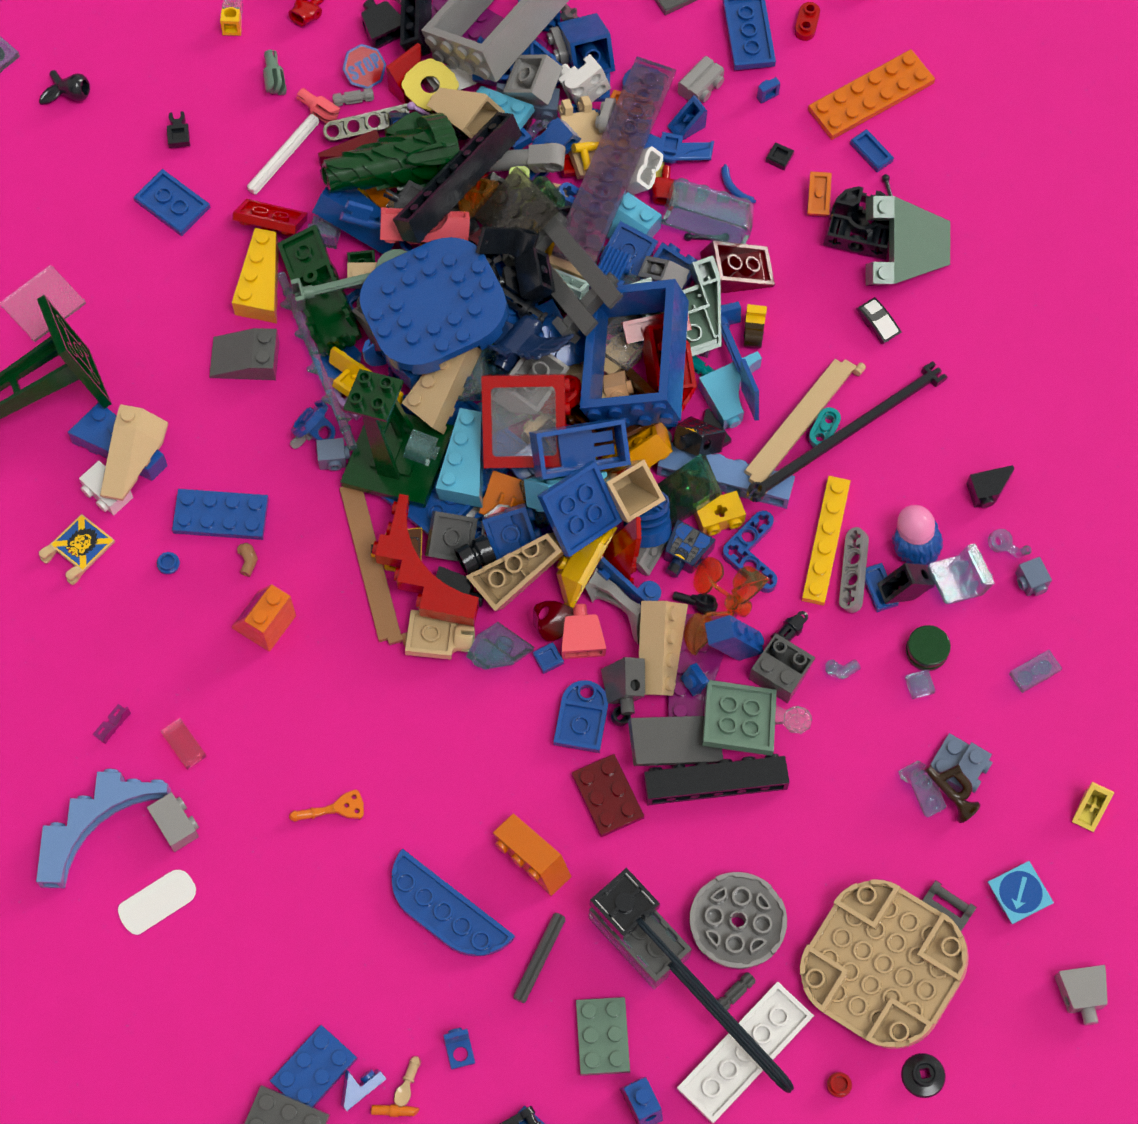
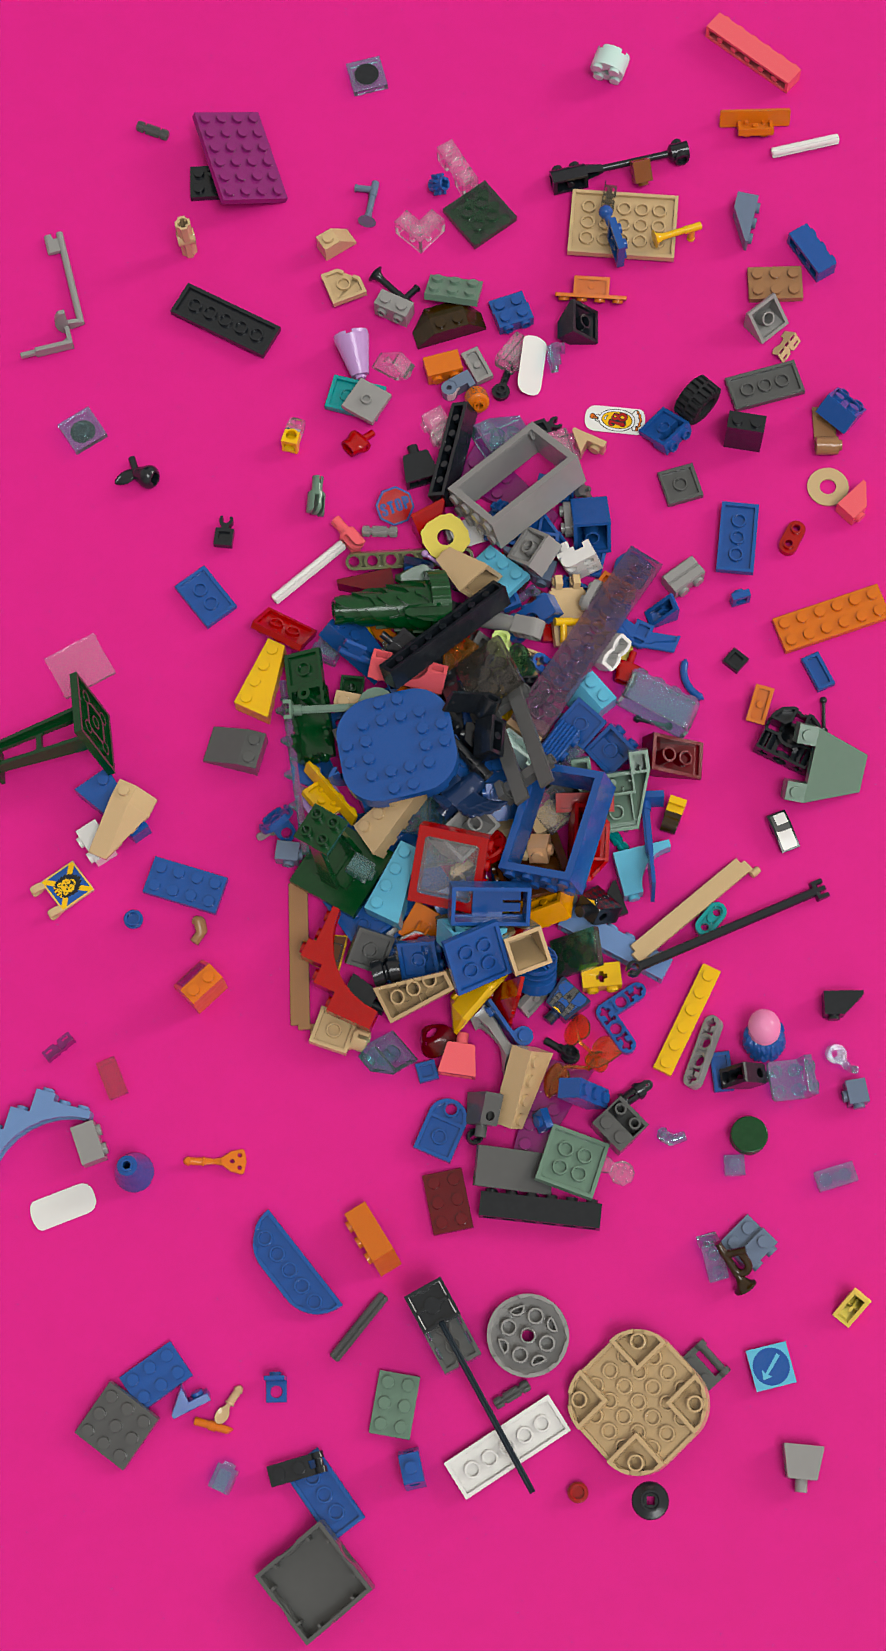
camera: 20 degrees right, 5 degrees up
(233, 842) = (134, 1172): none -> blue cone
(663, 269) = (603, 753): light grey brick -> none

